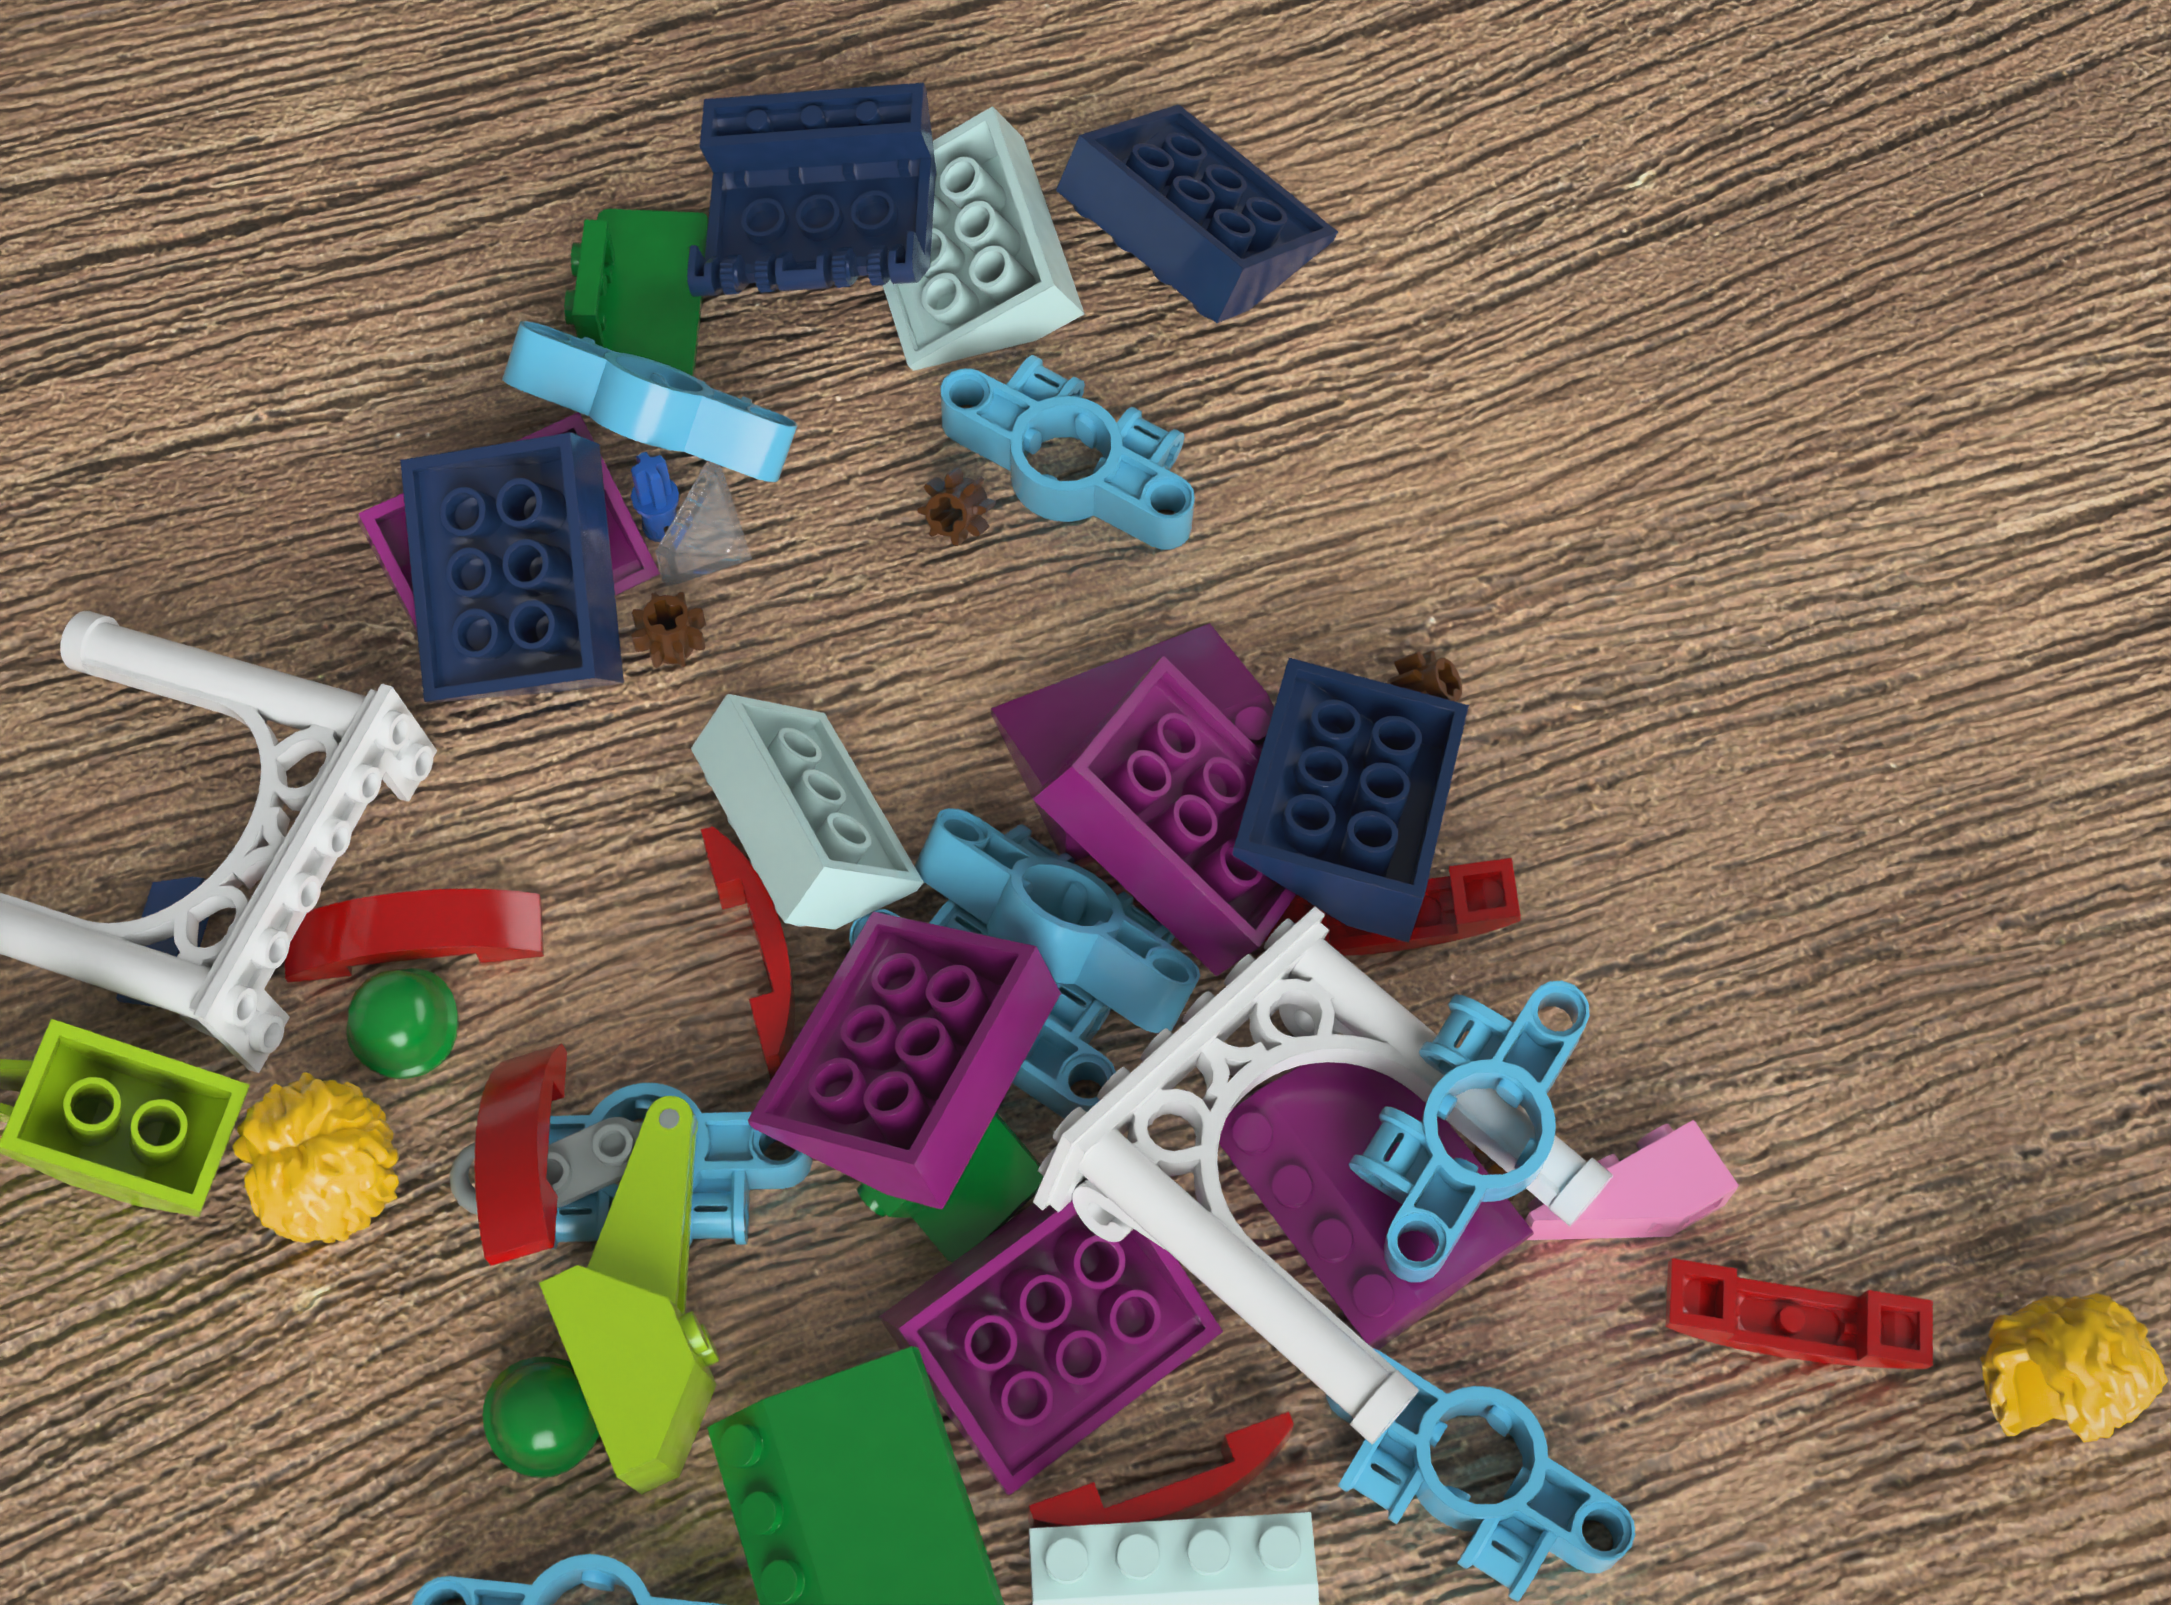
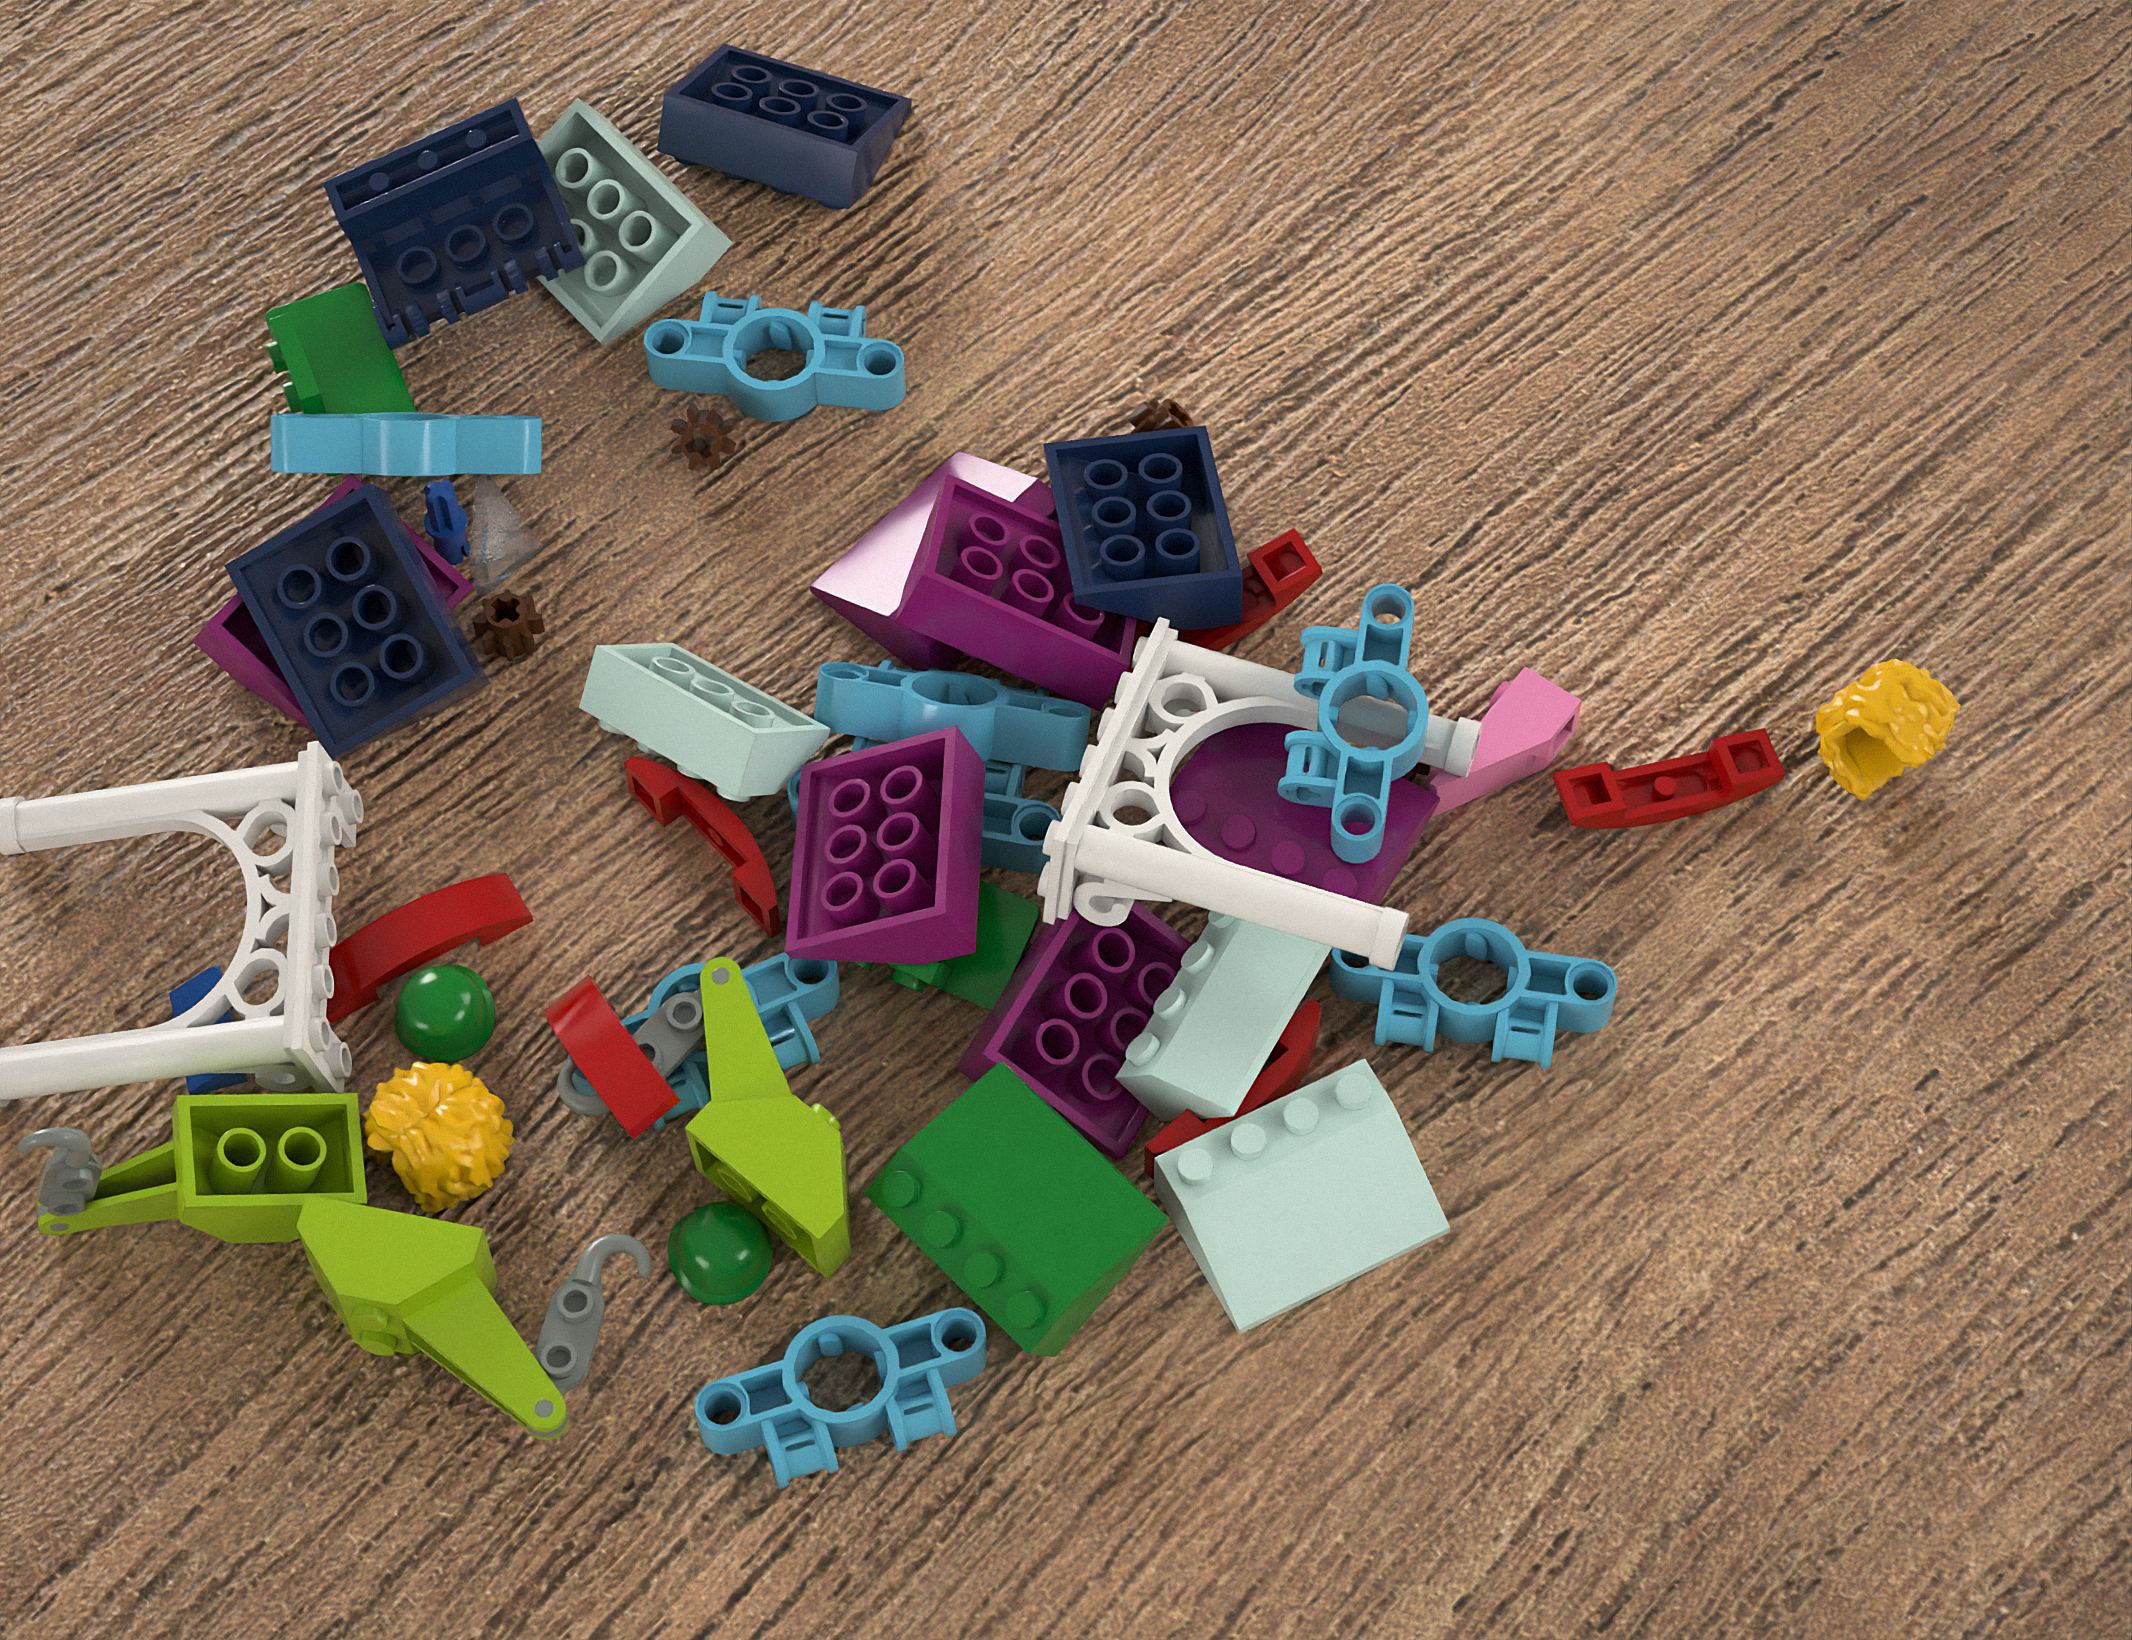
camera: 20 degrees left, 5 degrees down
(221, 1348) = (431, 1289): none -> lime slope
(1169, 1400) = (1219, 1018): none -> light aqua slope

